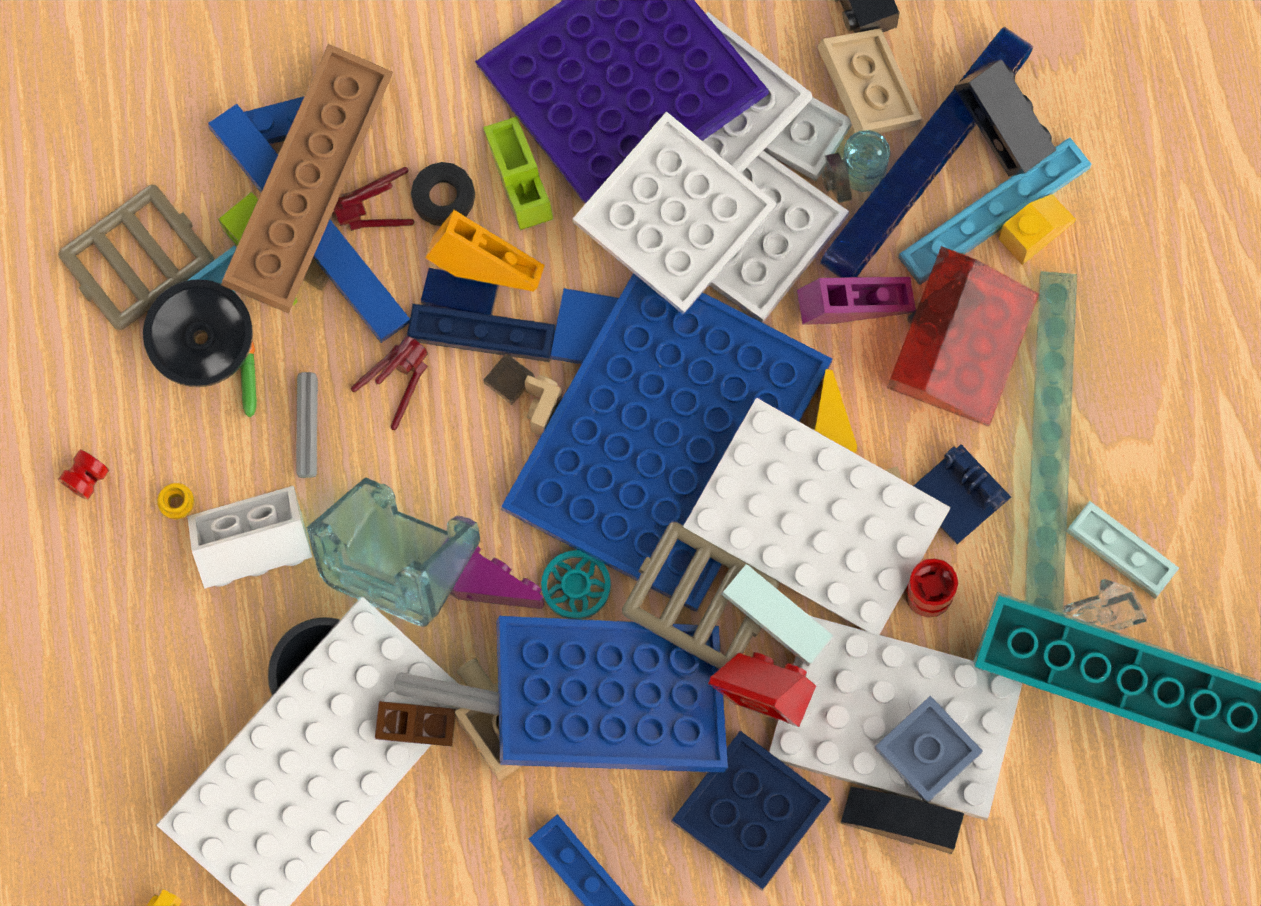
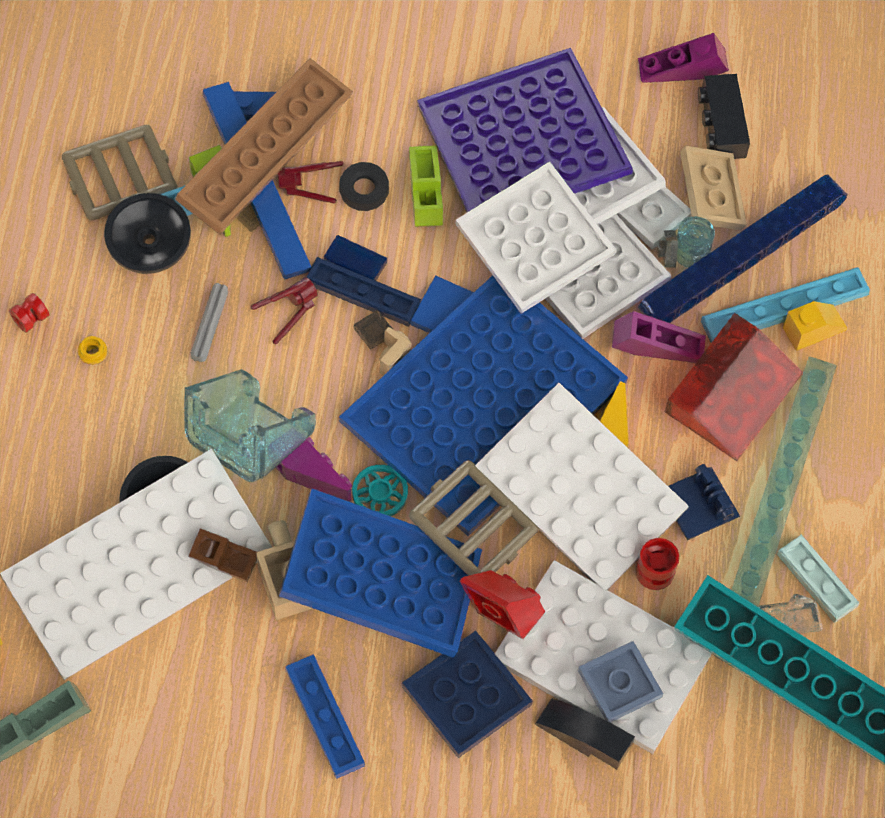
camera: 10 degrees right, 10 degrees down
(248, 384) = (175, 280): bright green piece -> none
(248, 537) = (139, 390): white slope -> none
(447, 693) = (254, 536): light grey axle -> none
(482, 256) = (376, 232): light orange slope -> none
(777, 615) = (529, 550): light aqua tile -> none
(1005, 117) = (811, 236): brick -> none

